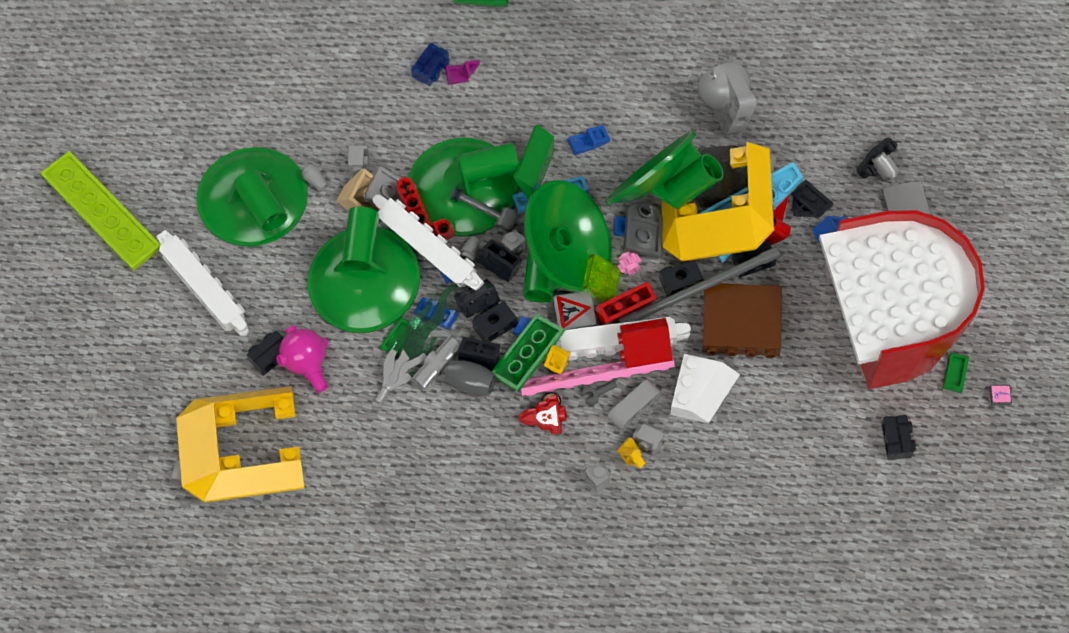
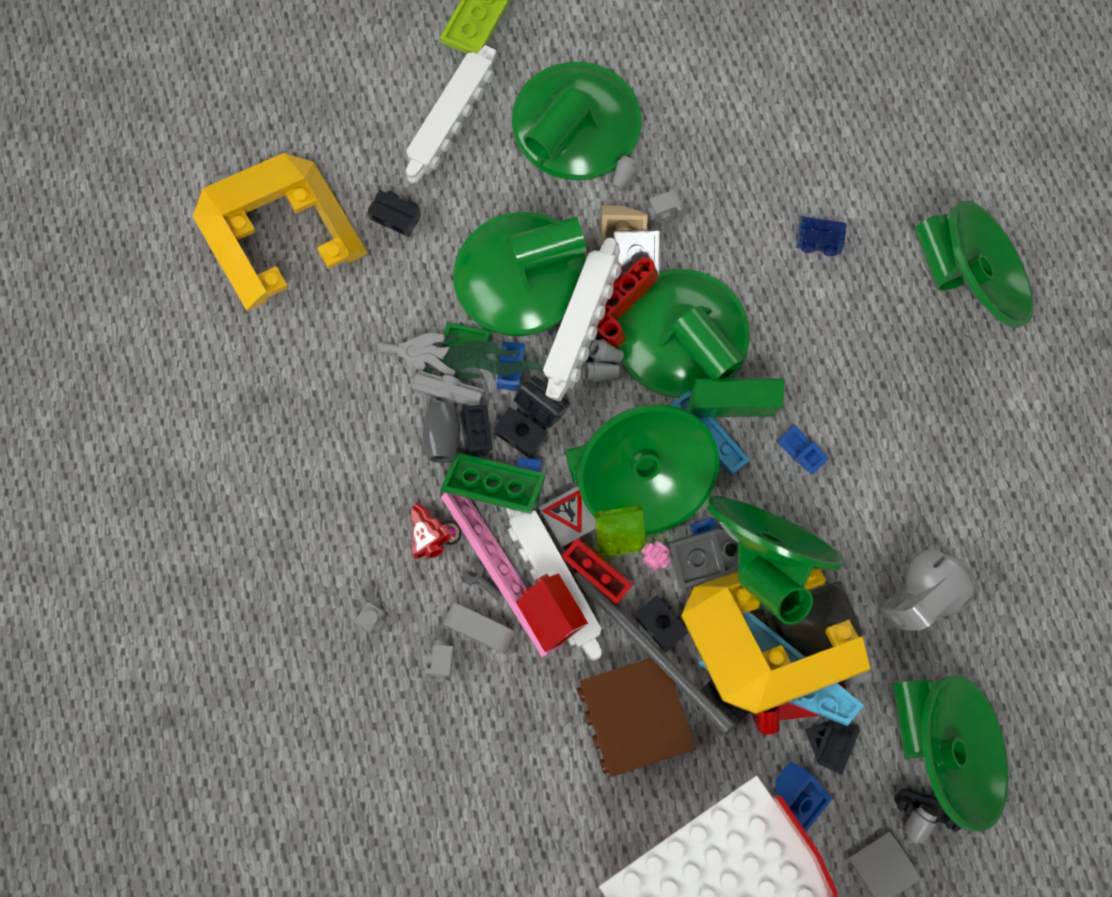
camera: 65 degrees right, 10 degrees up
(303, 354) = (403, 247): dark pink piece -> none
(457, 239) = (603, 351): none -> light grey cone
(461, 73) = (827, 274): magenta slope -> none
(499, 260) = (598, 406): black brick -> none
(505, 218) = (655, 392): dark grey piece -> none
(557, 359) = (497, 519): yellow bracket -> none
(631, 453) = (414, 644): yellow bracket -> none
(701, 388) = (527, 699): white wedge -> none
(824, 118) = (961, 747): none -> green dish

